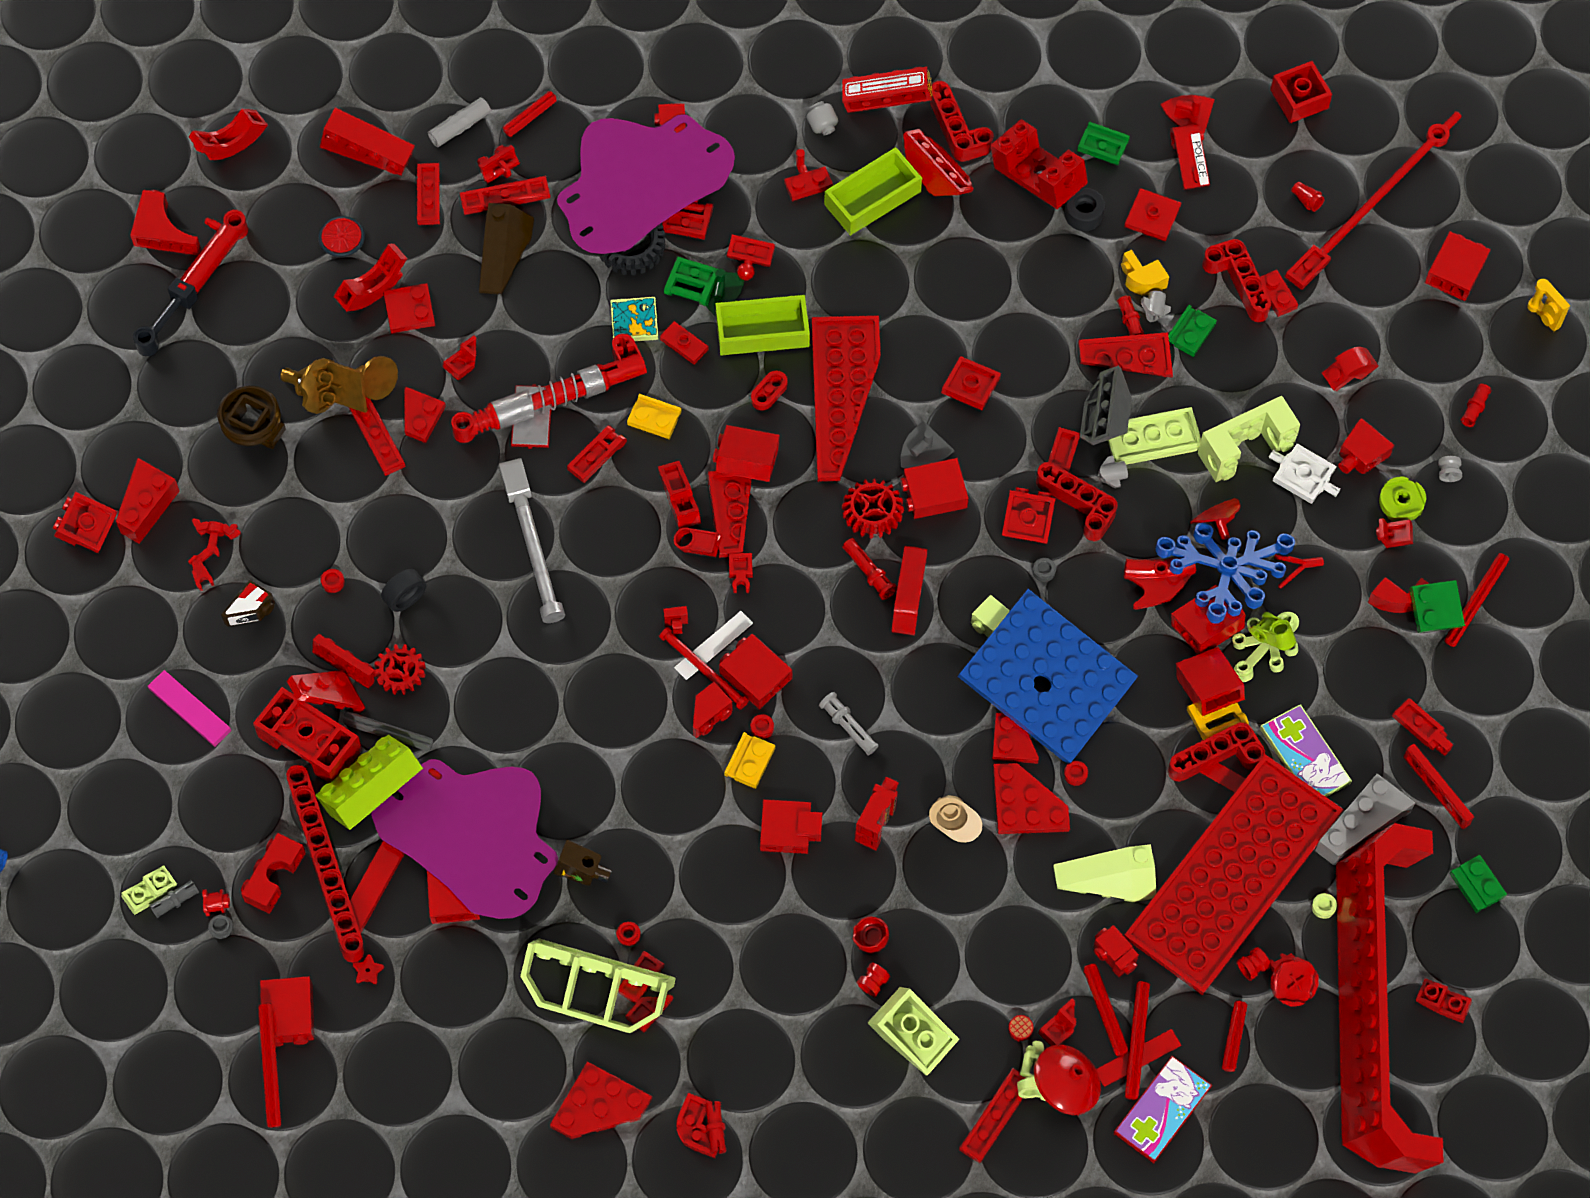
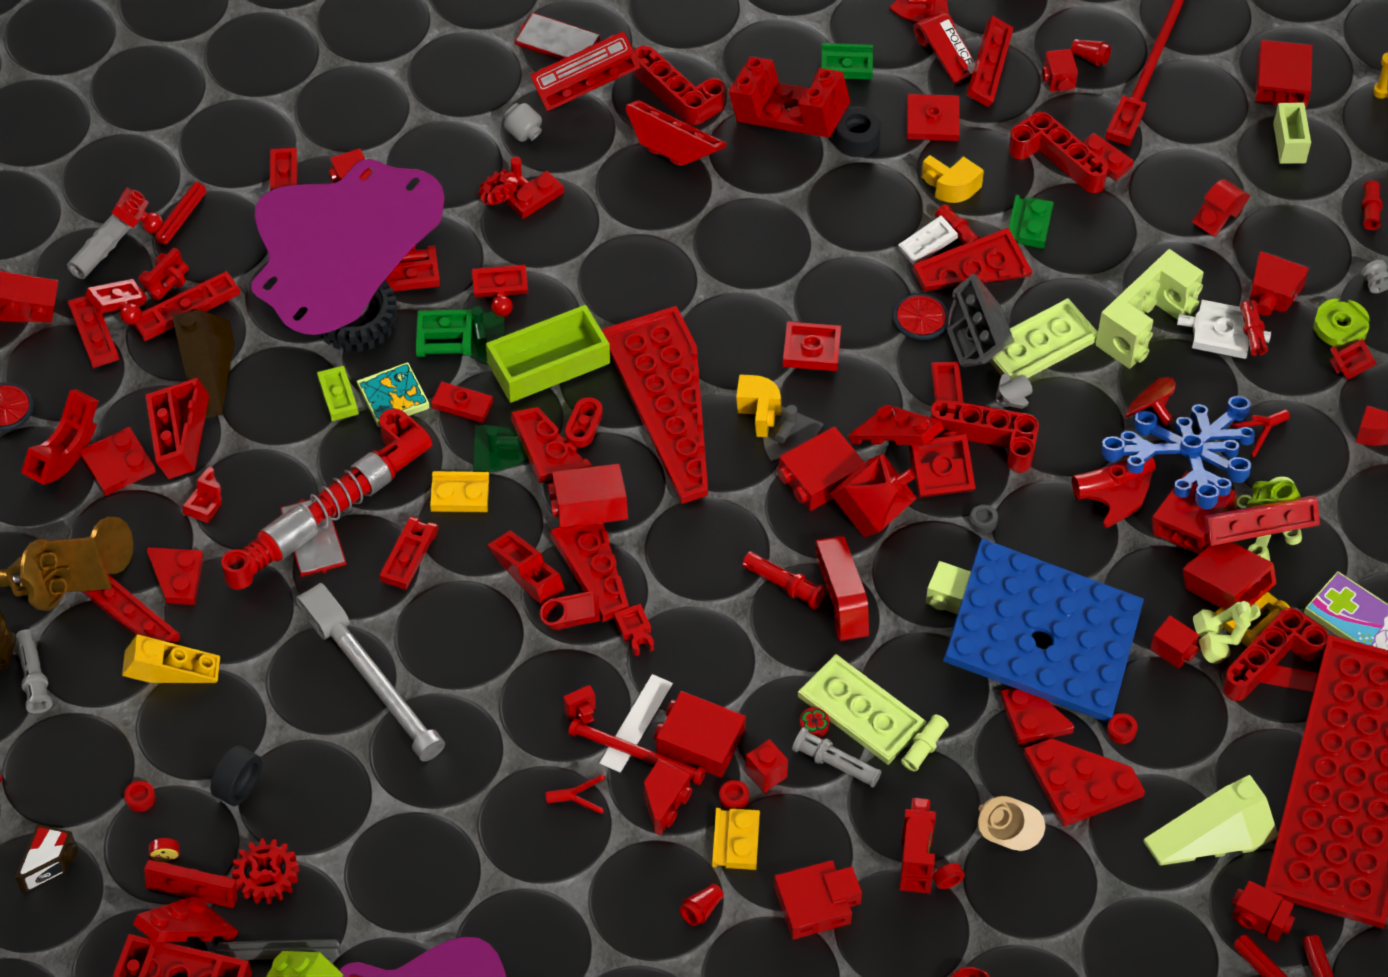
camera: 20 degrees left, 10 degrees down
(287, 466) = (34, 681): none -> light grey pin
(333, 628) = (164, 850): none -> tile
(388, 484) = (168, 663): none -> yellow slope
(455, 172) = (118, 296): none -> red plate
(460, 295) = (177, 425): none -> red wedge
(491, 101) = (131, 210): none -> red plate
(592, 305) = (337, 393): none -> lime plate
(621, 101) = (283, 167): none -> red plate
(642, 685) = (570, 794): none -> red plant
(698, 390) = (496, 449): none -> dark green shield
(700, 803) = (700, 905): none -> red cone
(732, 400) = (544, 445): none -> red wing
(775, 174) = (498, 187): none -> red gear
(793, 712) = (766, 766): none -> red brick
(845, 690) = (816, 721): none -> tile
(873, 191) = (614, 178): lime piece -> none
(875, 520) = (770, 523): red gear -> none
(879, 49) = (554, 37): none -> flat silver piece
(885, 691) = (862, 709): none -> yellowish green tile
(893, 843) = (948, 876): none -> red tile
(912, 415) = (759, 397): none -> yellow brick
(920, 734) = (924, 742): none -> yellowish green pin
(963, 525) = (874, 495): none -> red piece
(1006, 473) = (897, 425): none -> red wing
(1068, 384) = (921, 316): none -> red wheel
(1100, 322) = (928, 240): none -> white plate
(1145, 719) = (1175, 642): none -> red brick
(1155, 305) = (979, 206): light grey piece -> none
(1177, 716) = (1210, 627): none -> yellowish green piece
(1219, 179) = (990, 61): none -> red plate
(1253, 646) = (1262, 520): none -> red tile
(1273, 205) = (1060, 70): none -> red brick
(1325, 482) = (1253, 328): none -> red pin
(1437, 322) = (1292, 133): none -> yellowish green brick

